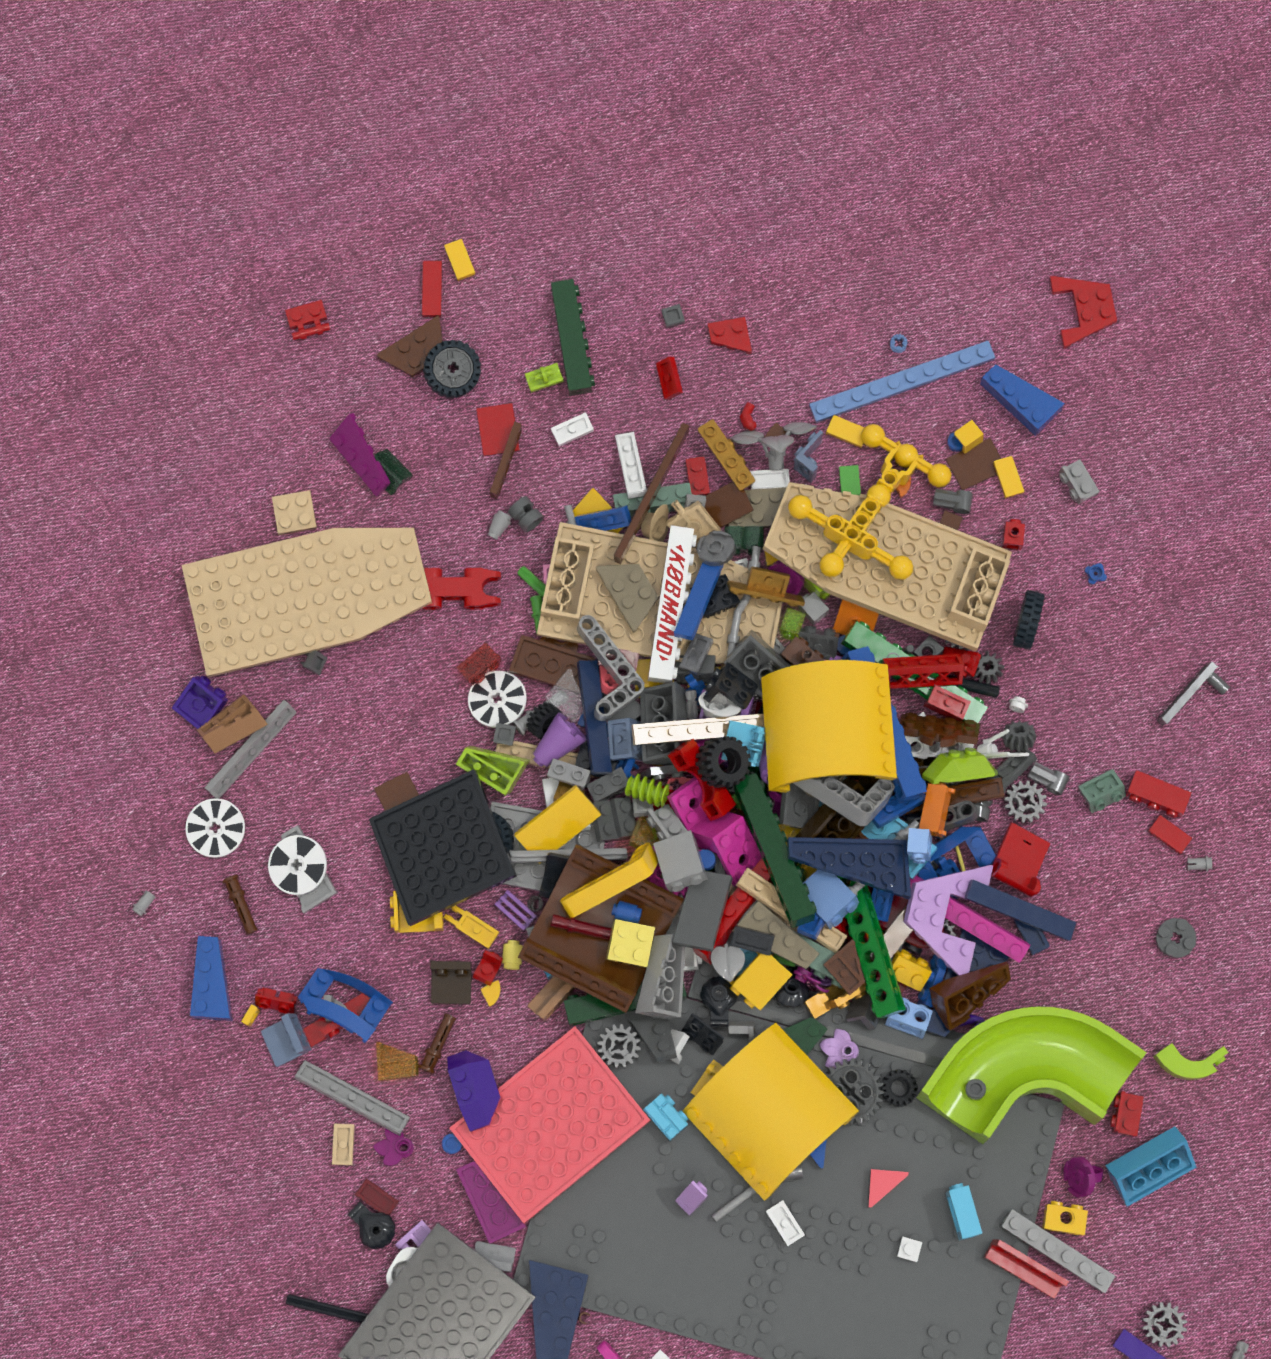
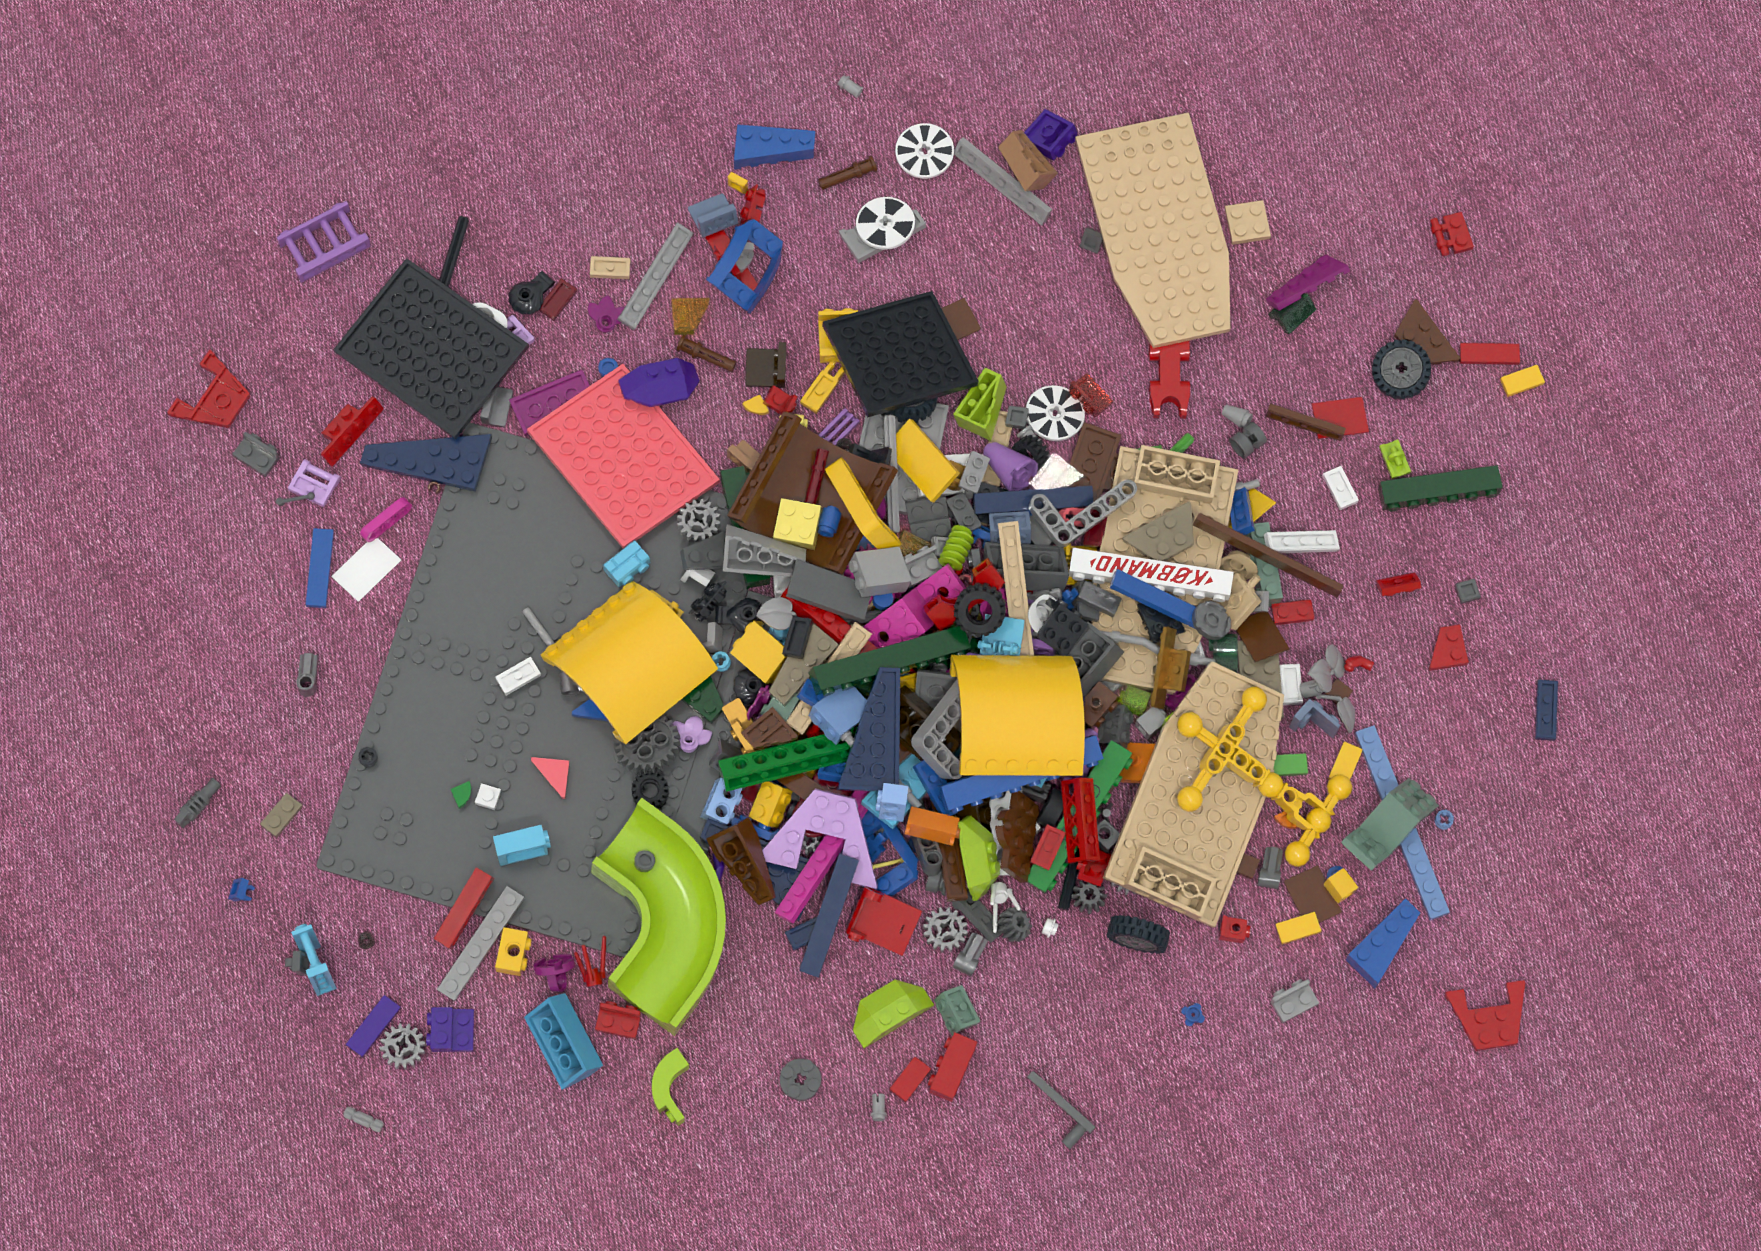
camera: 85 degrees right, 5 degrees down
(692, 1197) = (546, 585): lavender slope -> none
(726, 455) = (1314, 637): pearl gold bracket -> none
(767, 1016) = (726, 664): none -> medium azure bush
(788, 249) = (1546, 710): none -> dark blue tile
(907, 700) = (1051, 809): none -> black tyre
(907, 1275) = (462, 794): none -> green tile
(911, 388) = (1390, 823): none -> sand green bracket
(1084, 1140) = (592, 976): none -> red plant
(1106, 854) = (889, 1010): none -> lime wedge
(1144, 1277) = (450, 1030): none -> dark purple plate

